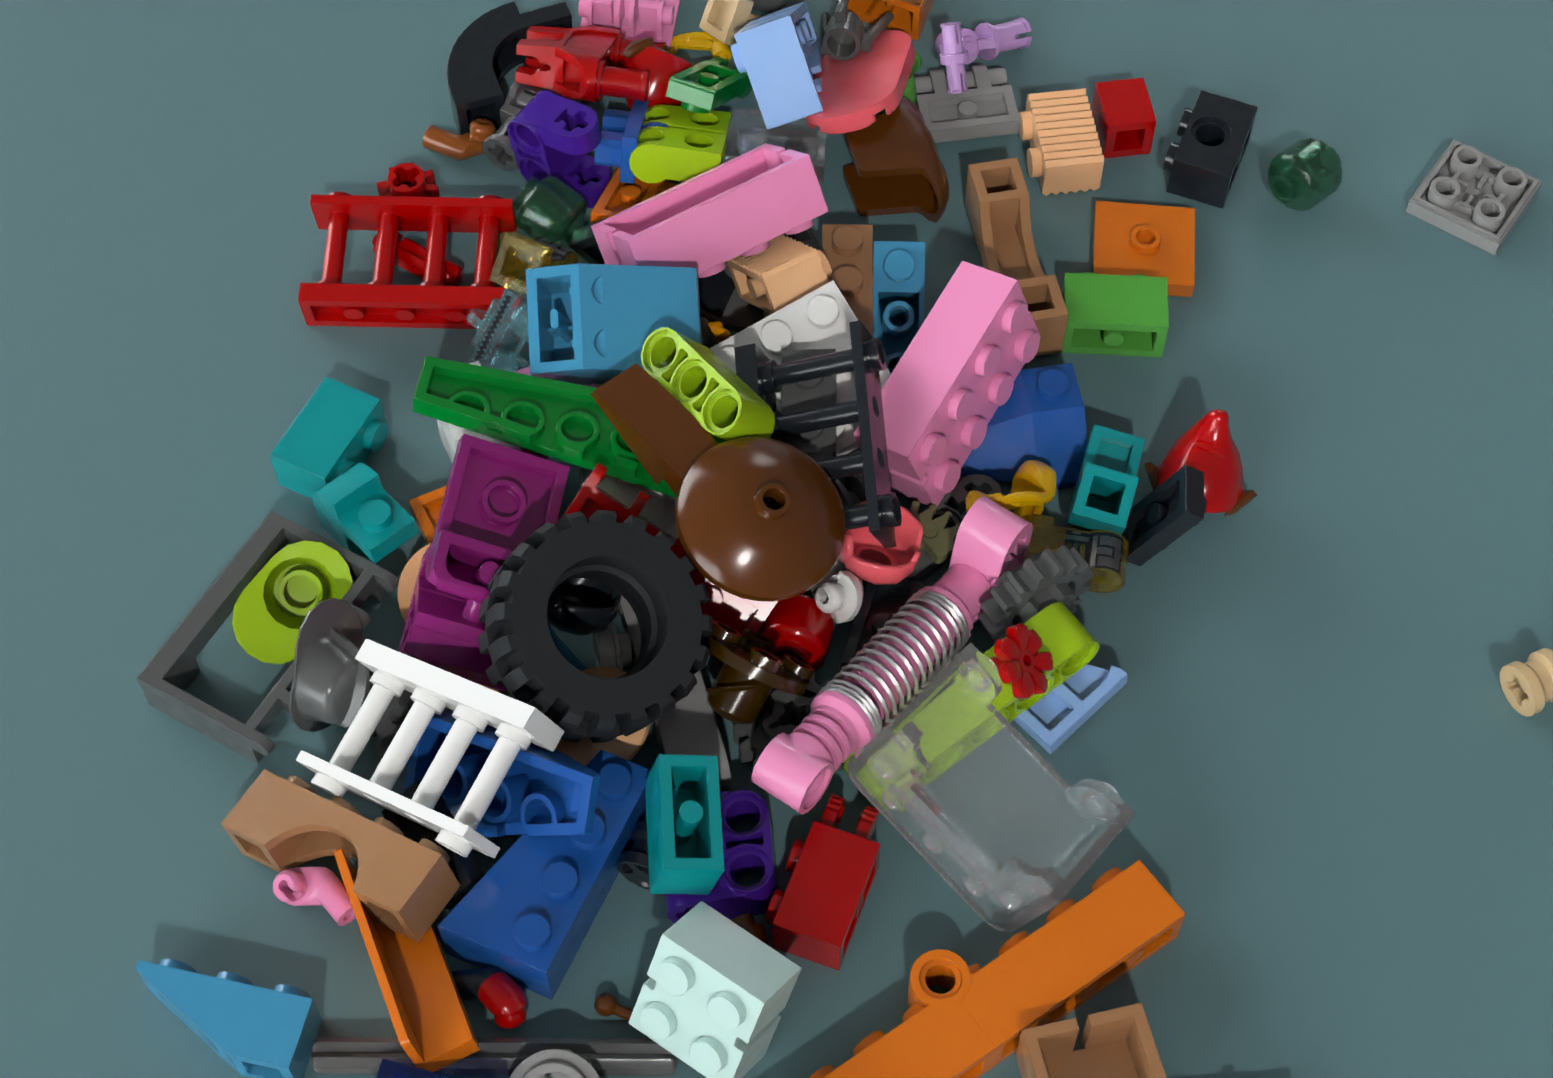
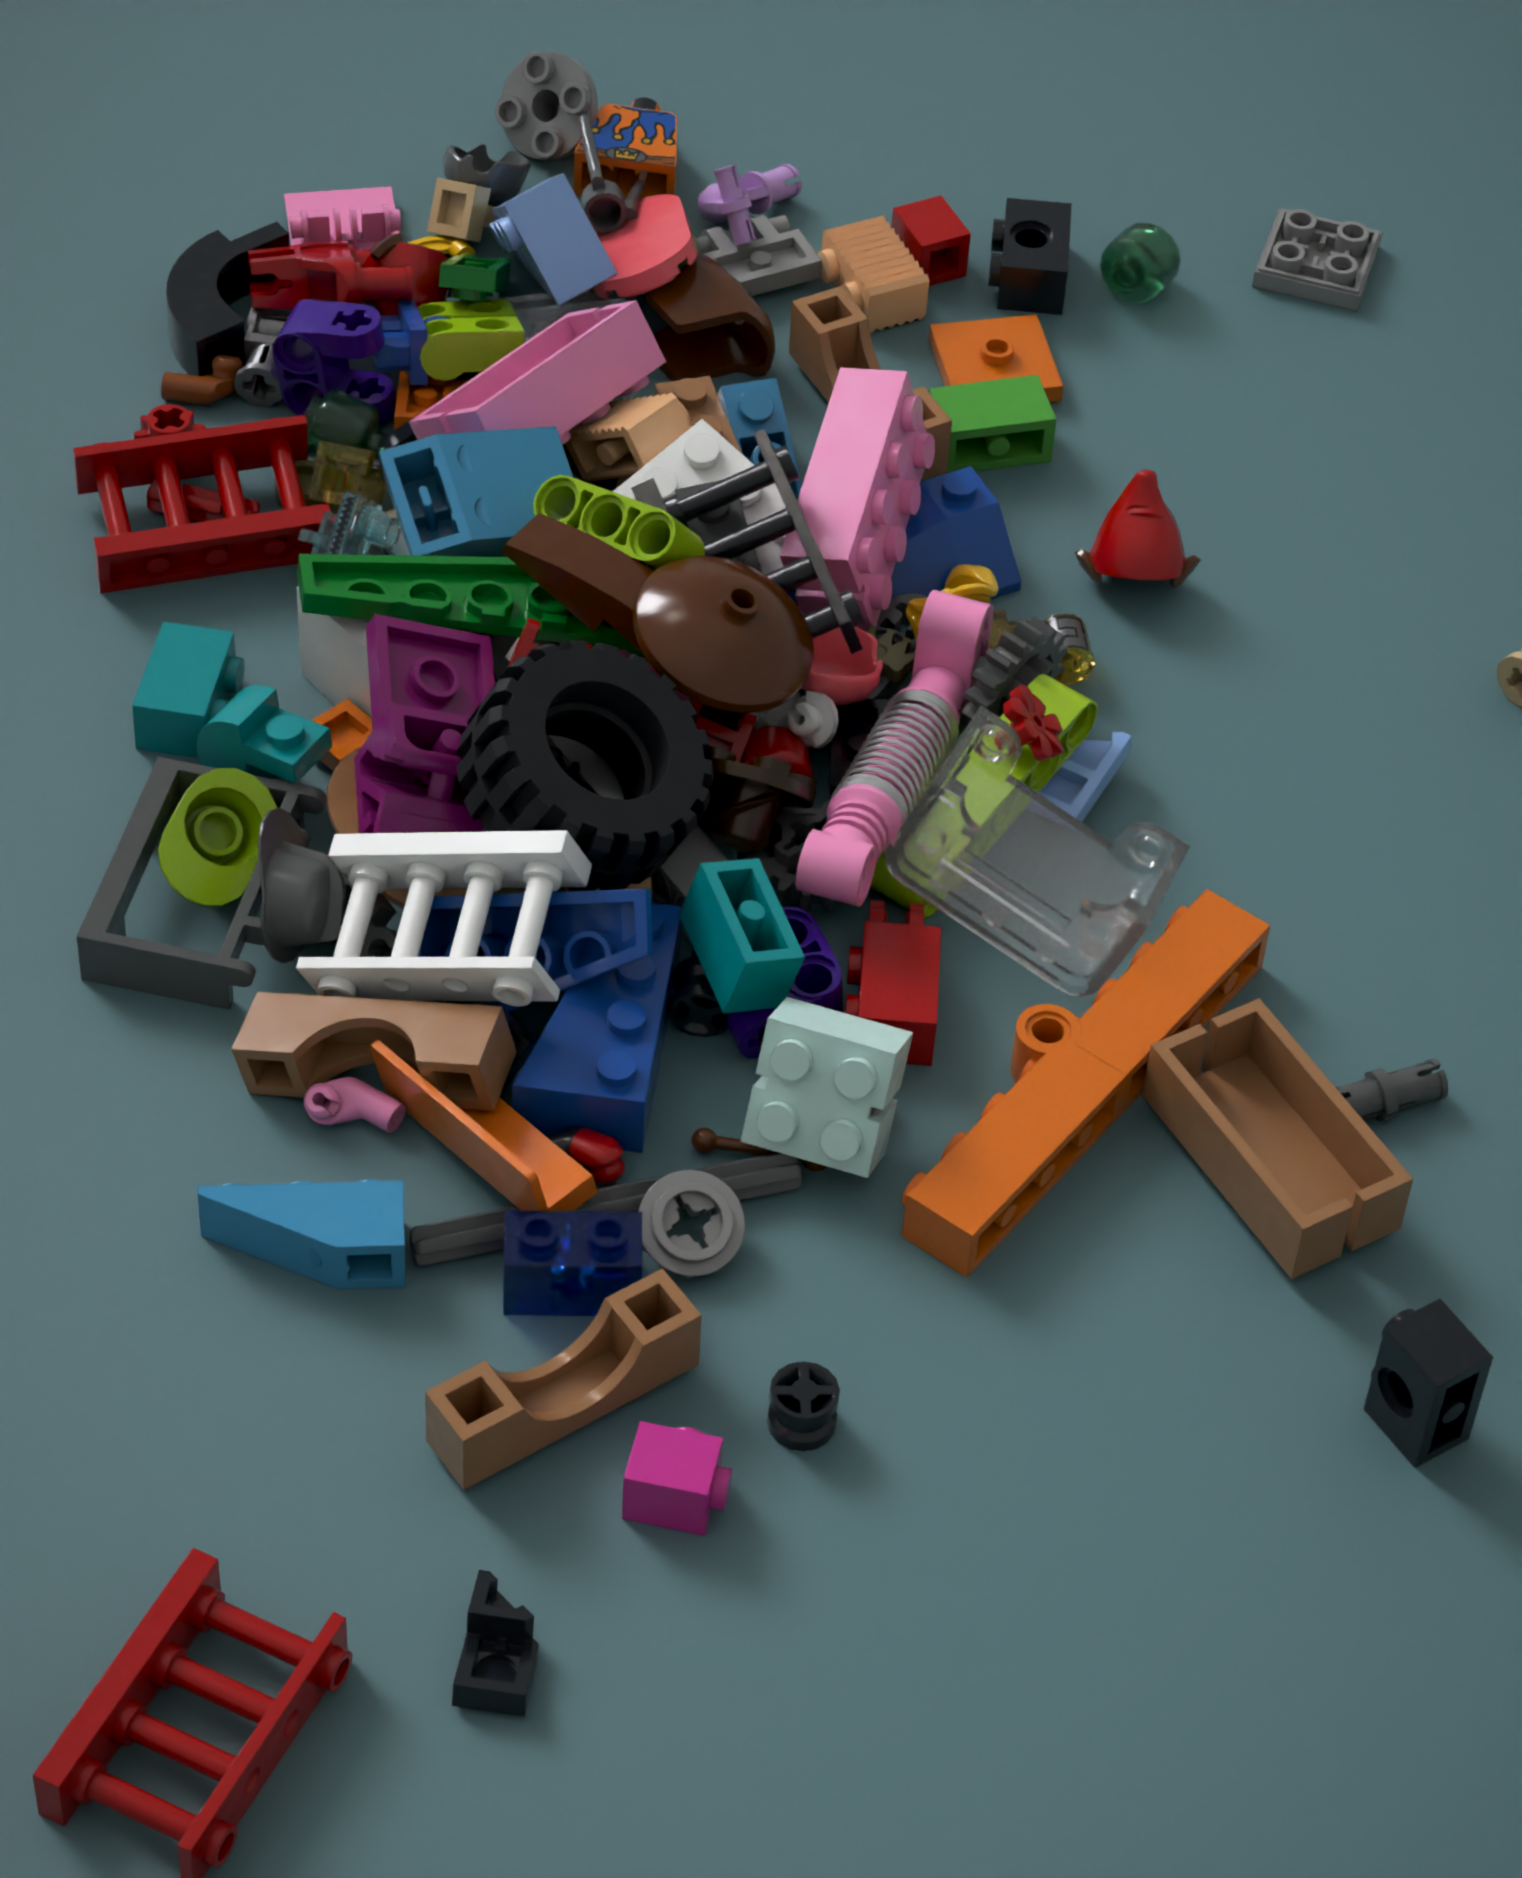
camera: 20 degrees left, 10 degrees down
(1106, 481) = (1044, 570): teal brick -> none
(1165, 514) = (1117, 586): black plate -> none

